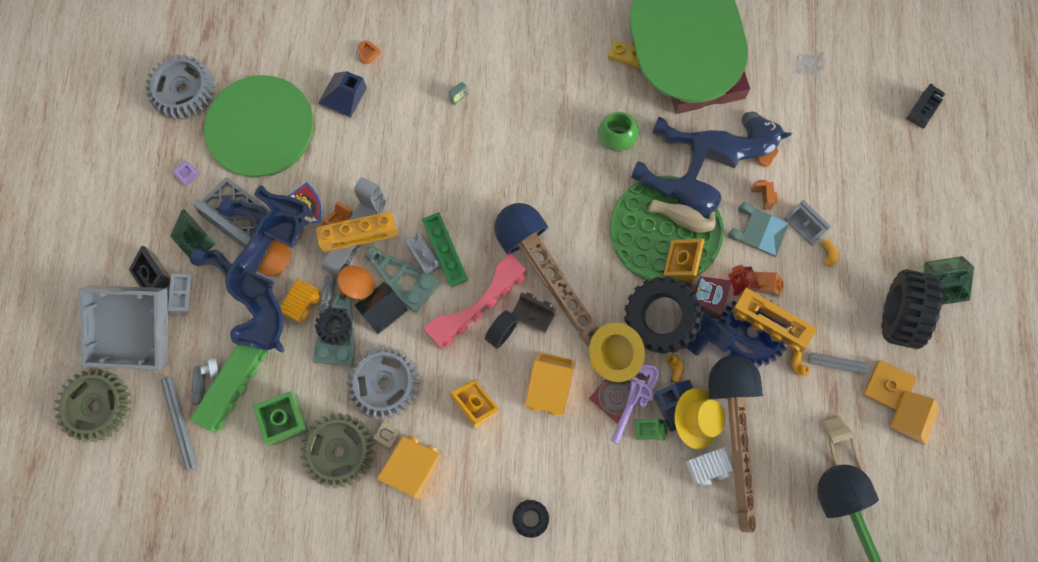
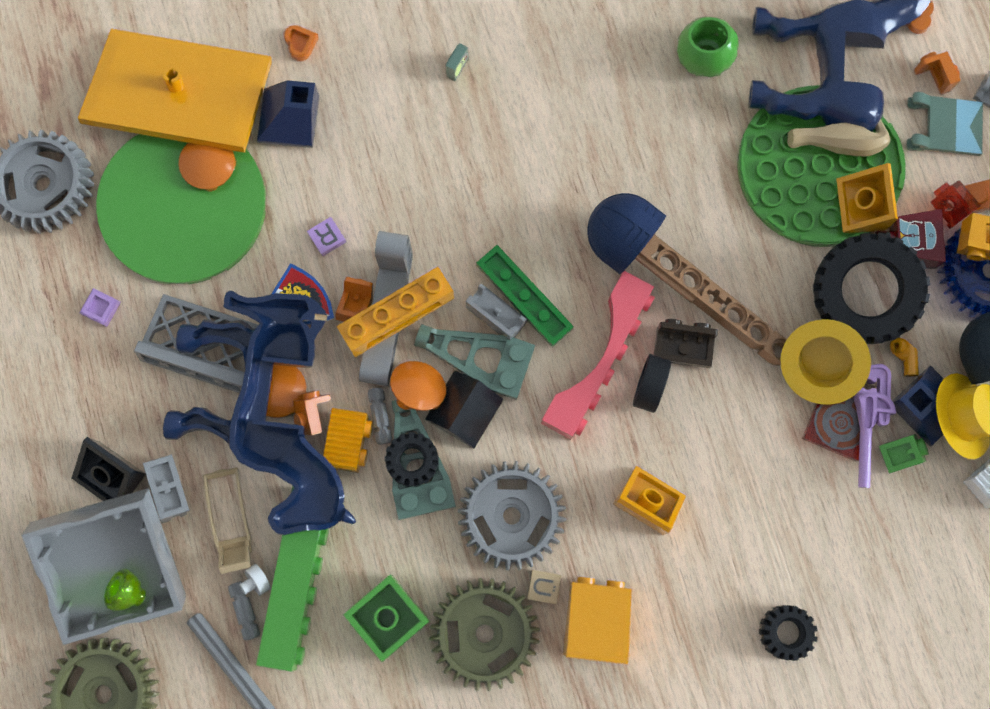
camera: 25 degrees left, 5 degrees up
(129, 346) = (123, 591): none -> clear neon green brick
(190, 234) = (145, 398): clear green slope -> none
(206, 347) = (233, 553): none -> tan piece
(281, 57) = (176, 90): none -> light orange piece
(281, 276) = (307, 411): none -> orange bracket
(282, 106) = (206, 166): none -> orange dish
(337, 174) = (326, 236): none -> lavender tile
(550, 383) = (747, 435): light orange slope -> none
(713, 332) = (946, 290): dark blue tile -> none

